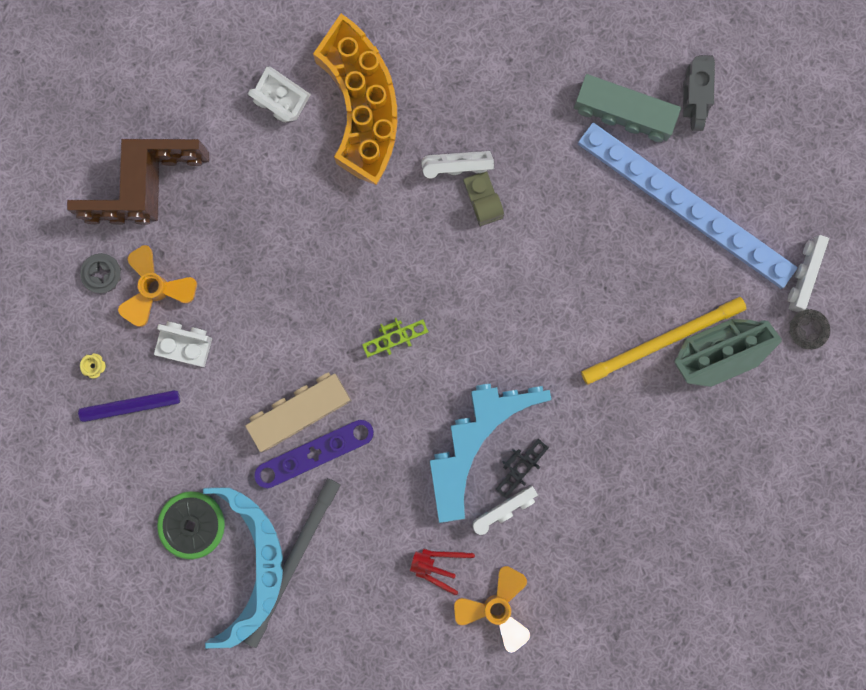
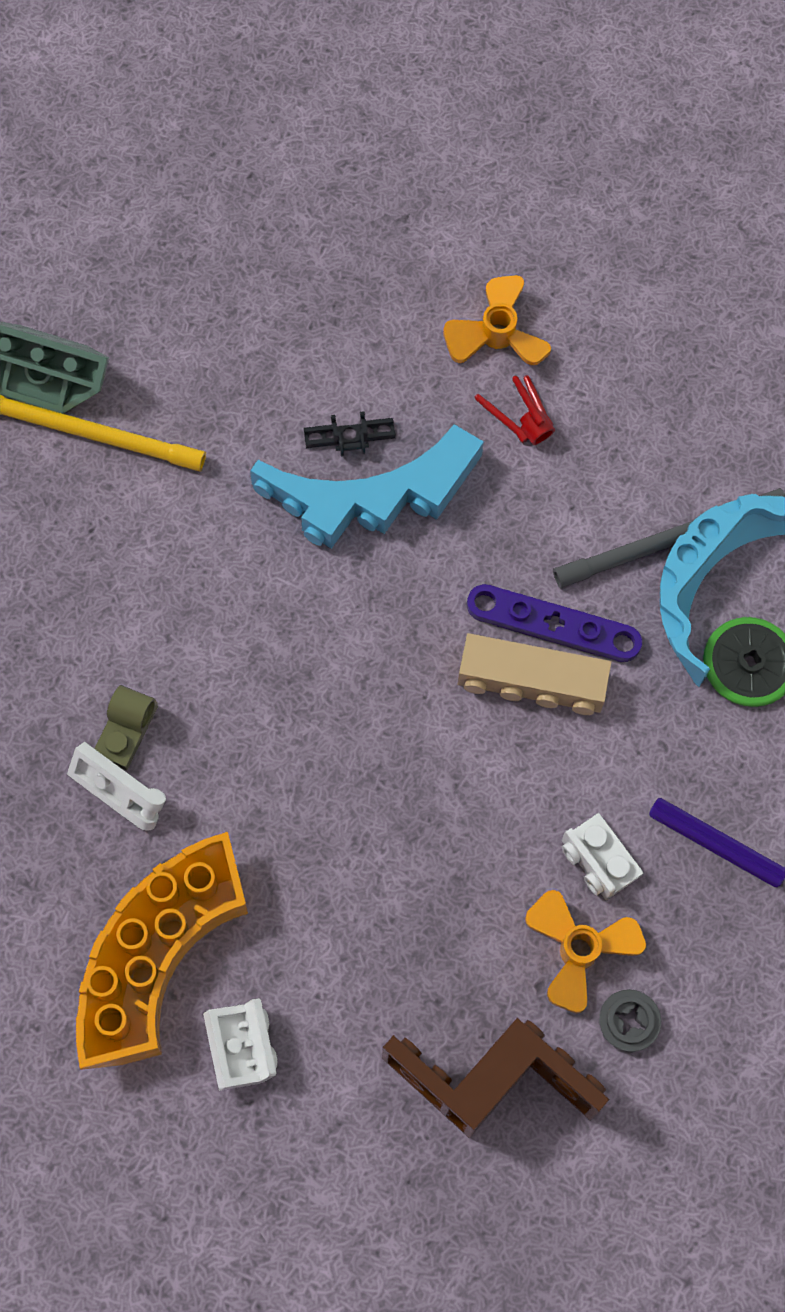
camera: 140 degrees left, 15 degrees down
(85, 365) = (729, 913): light yellow plate -> none
(390, 344) = (347, 664): lime piece -> none
(504, 510) = (406, 406): white plate -> none

